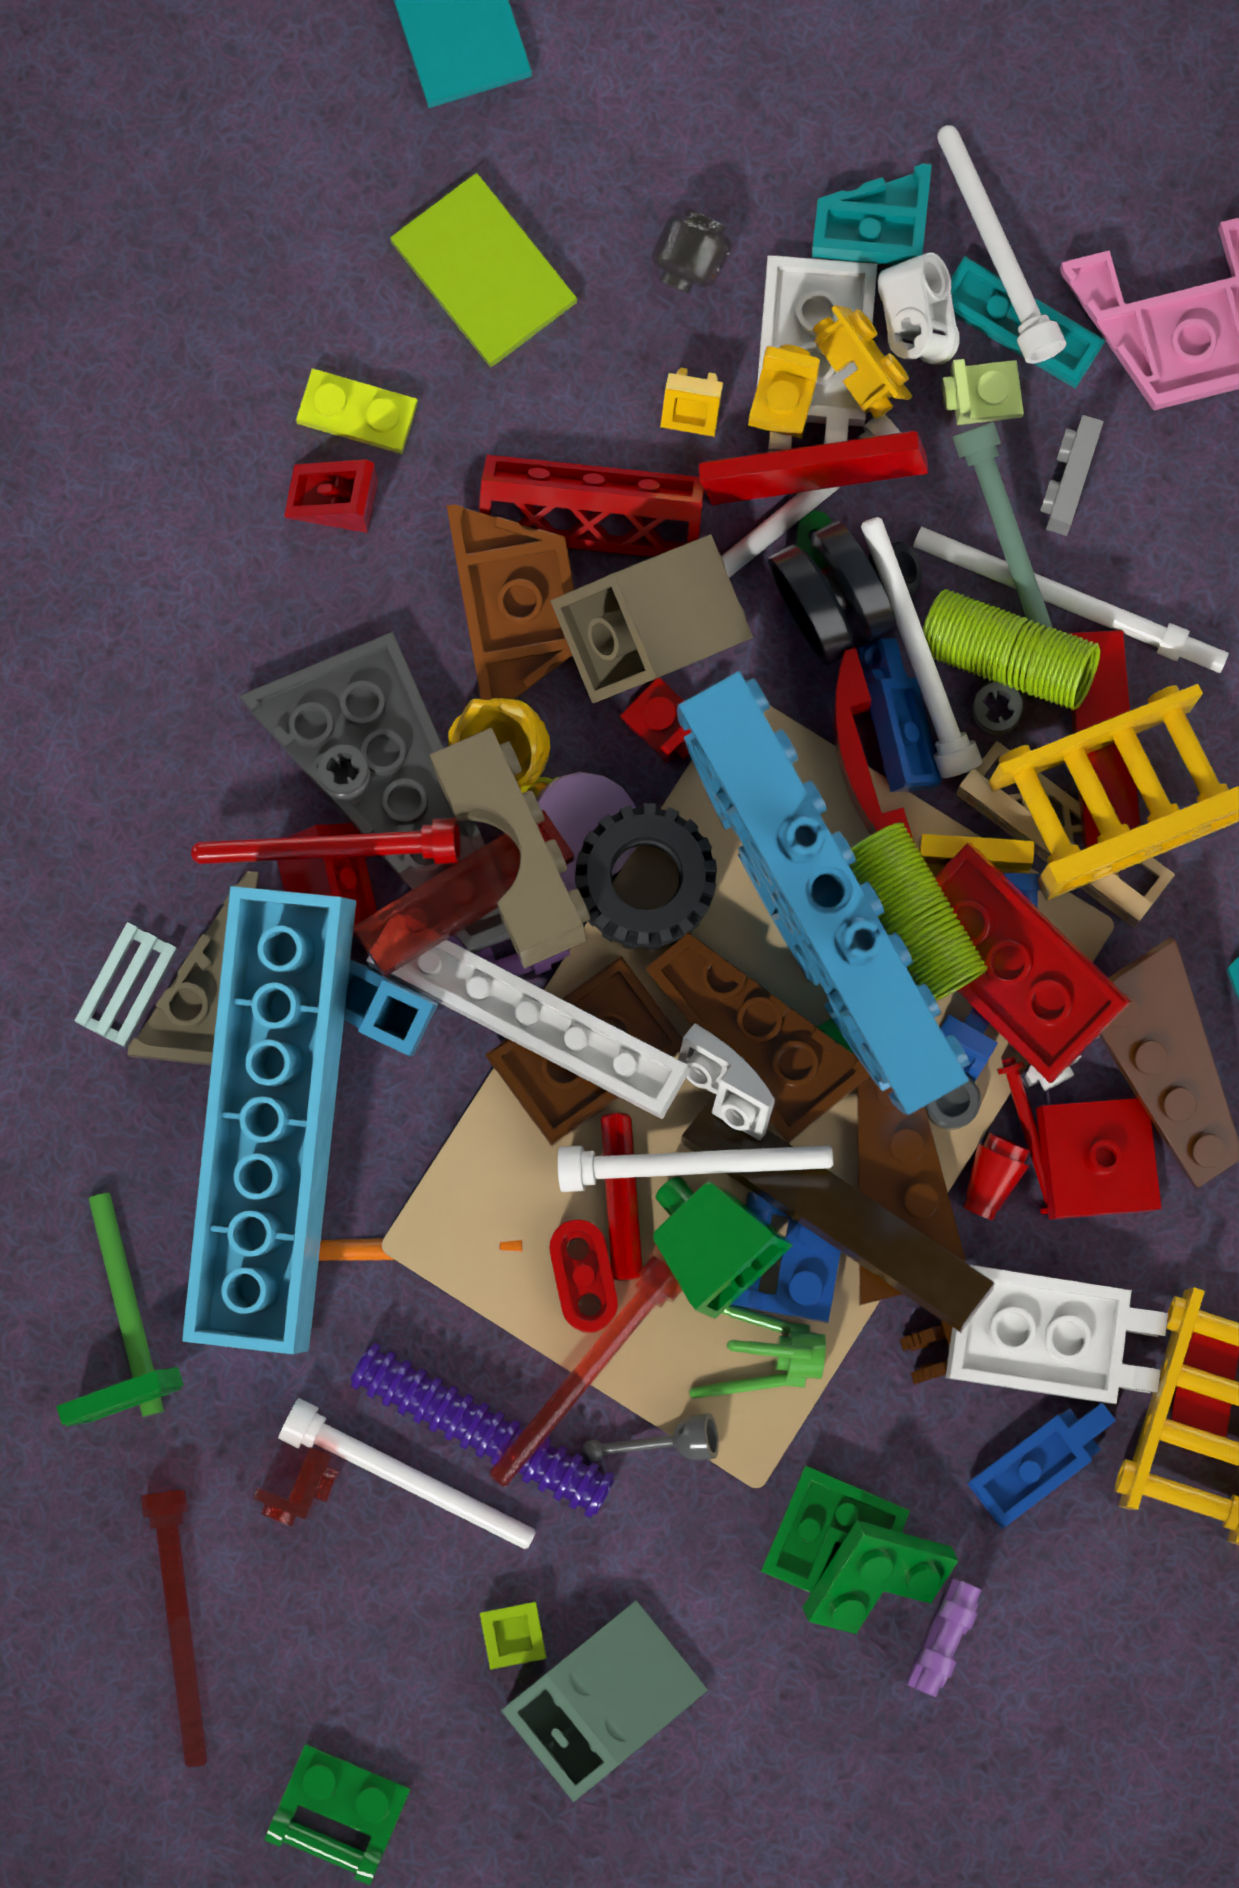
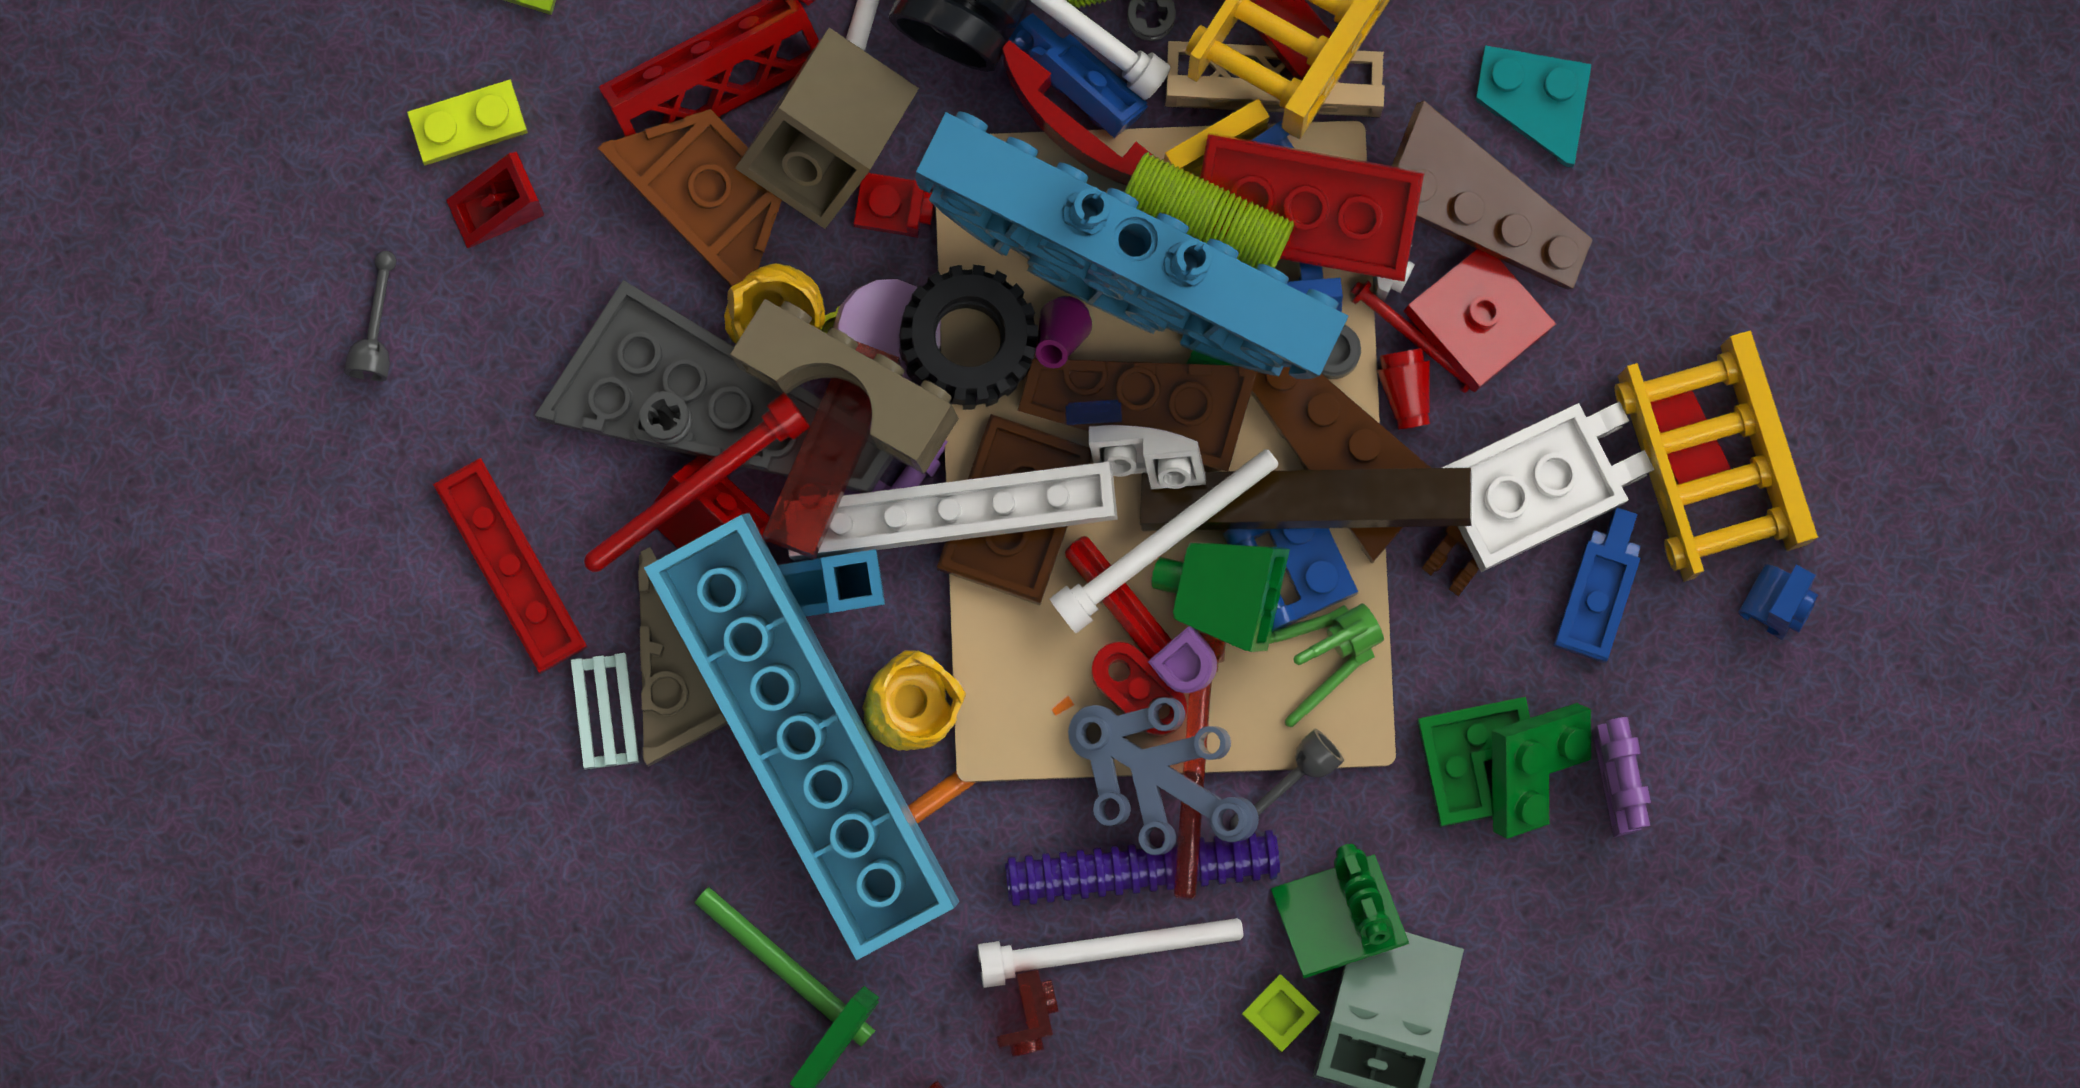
camera: 40 degrees left, 0 degrees up
(133, 808) = (510, 565): none -> red tile
(139, 550) = (369, 353): none -> dark grey hinge
(382, 1153) = (909, 703): none -> yellow hair
(545, 1355) = (1152, 770): none -> sand blue plant
(621, 1586) = (1339, 913): none -> green hinge
(636, 1281) = (1186, 662): none -> medium lavender tile
(705, 1014) = (1094, 412): none -> clear blue tile
(730, 925) = (1062, 329): none -> magenta cone
(1188, 1580) = (1780, 599): none -> blue plate

